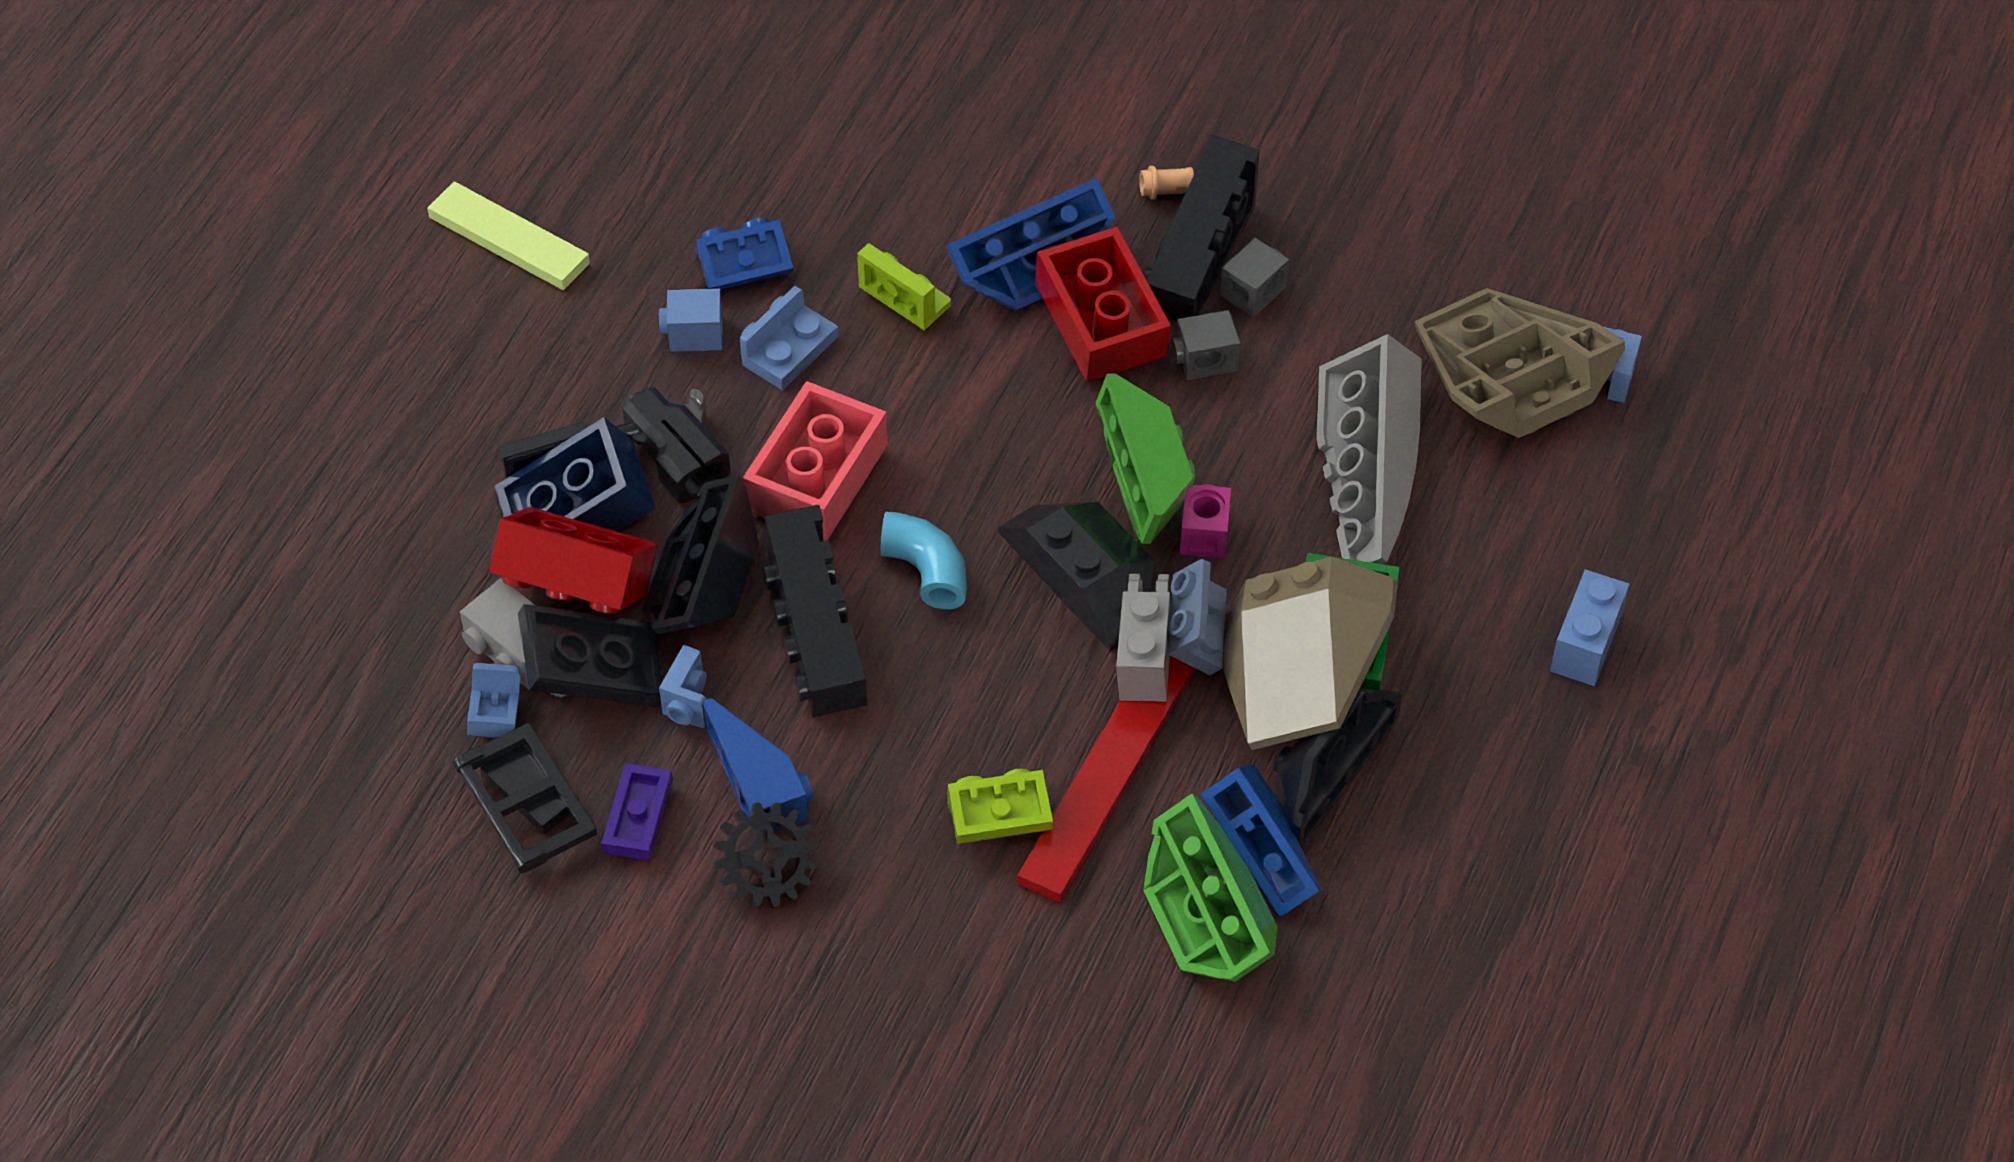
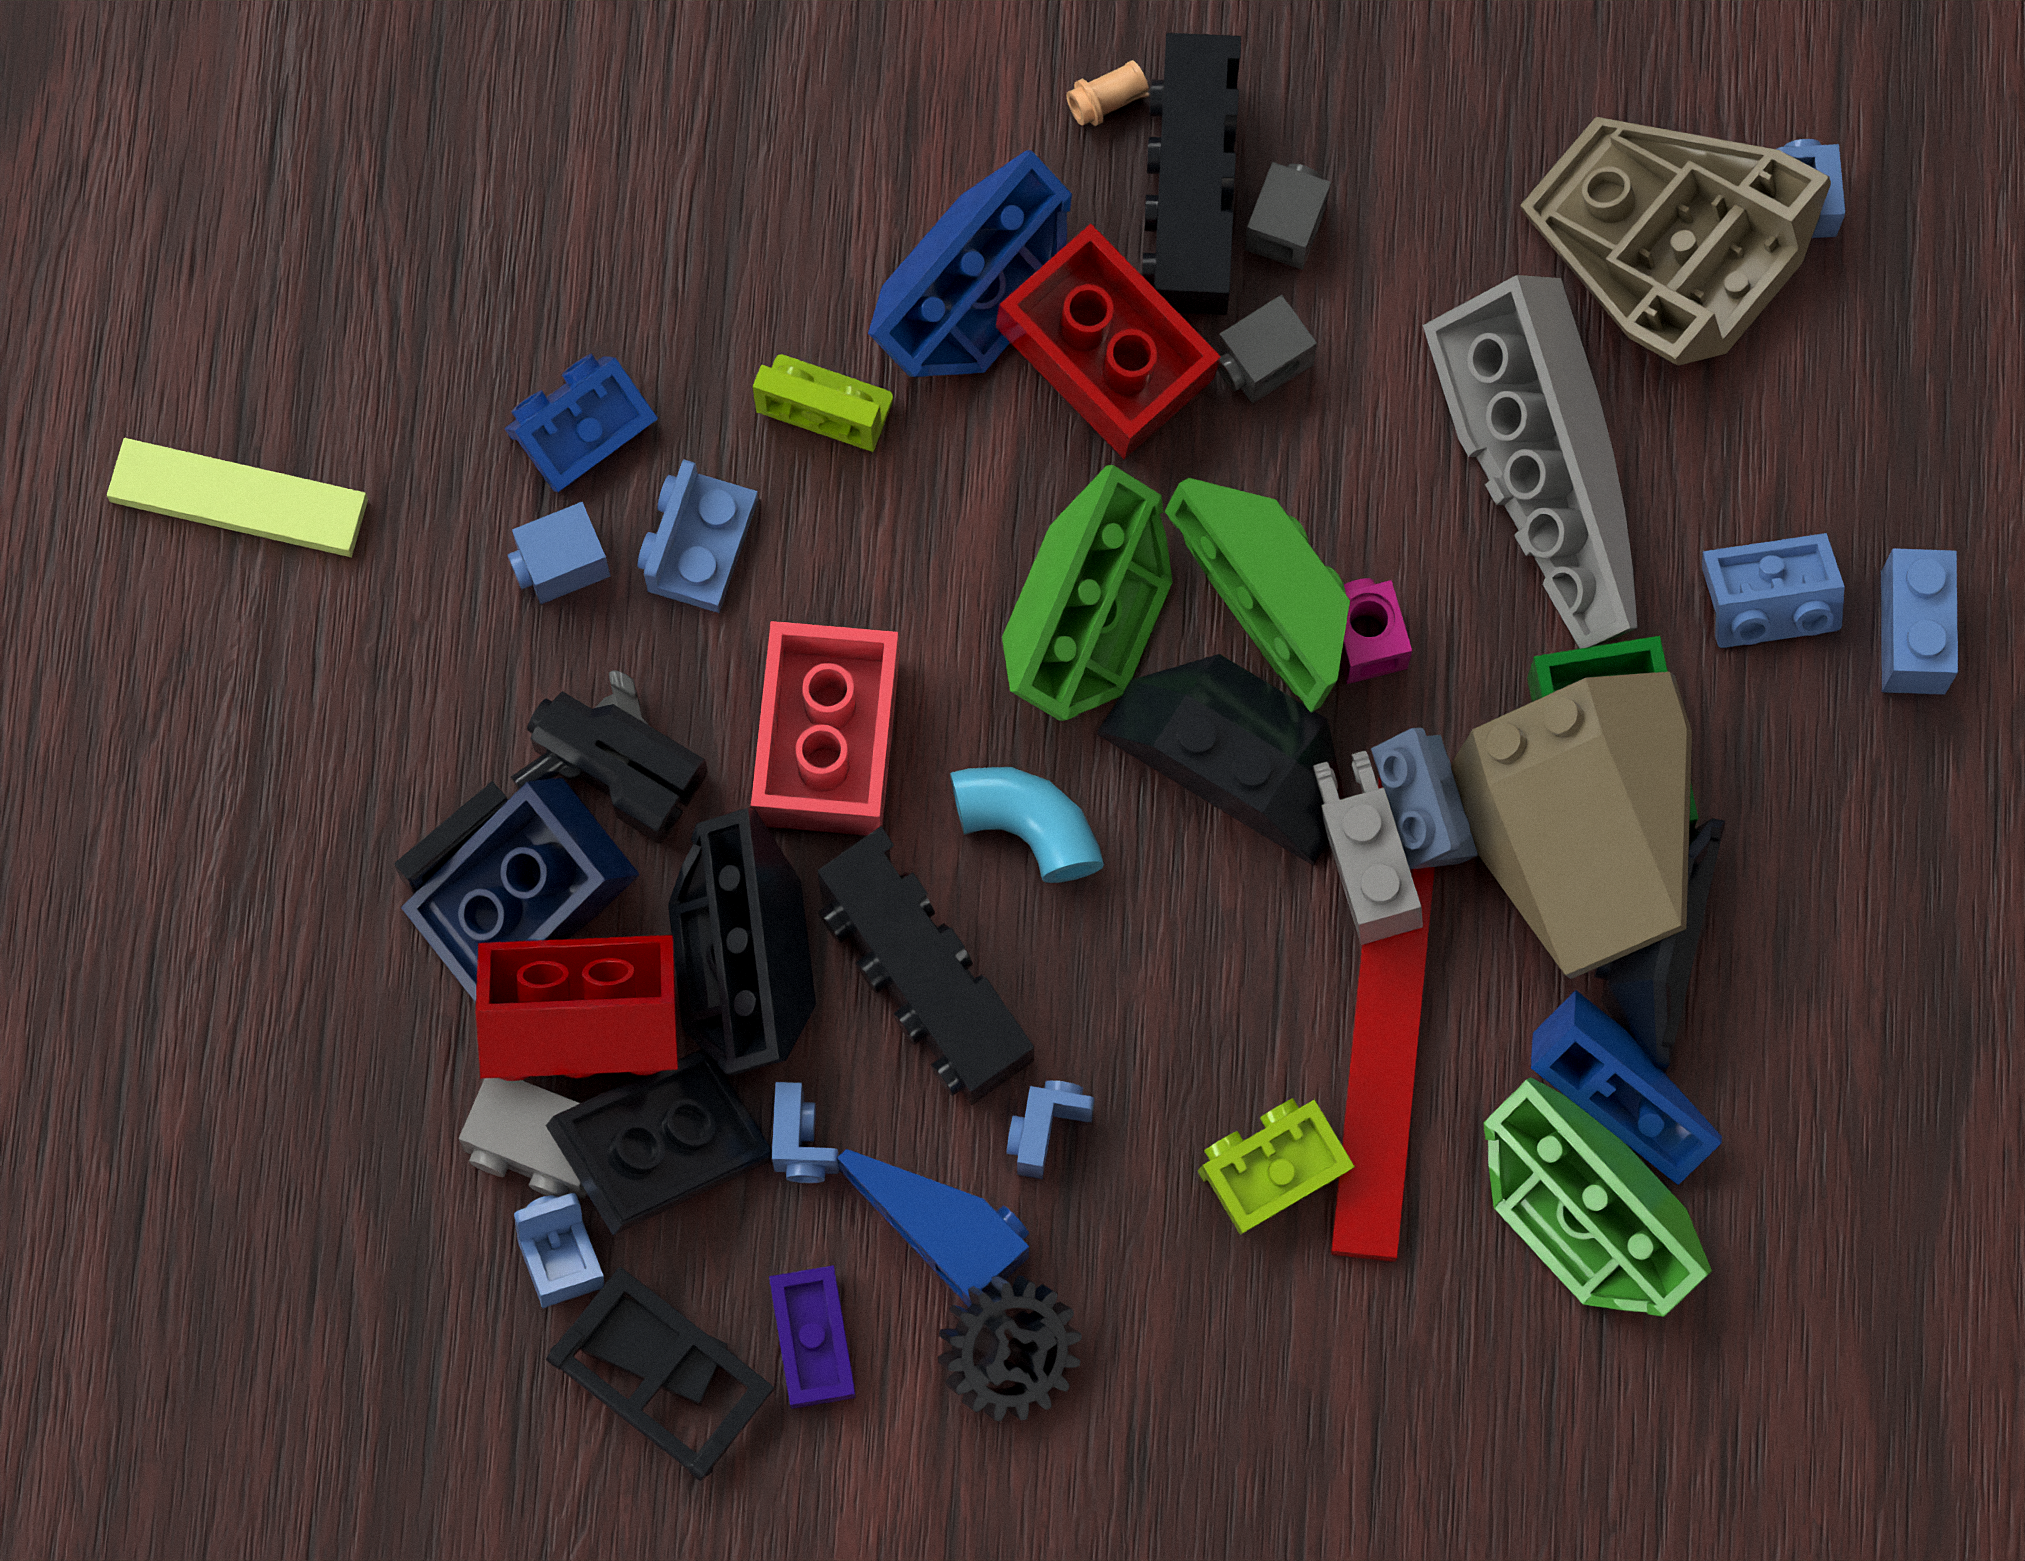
camera: 20 degrees left, 20 degrees up
(846, 736) = (1031, 1134): none -> medium blue bracket
(1029, 443) = (1090, 598): none -> bright green wedge
(1495, 585) = (1774, 590): none -> medium blue bracket

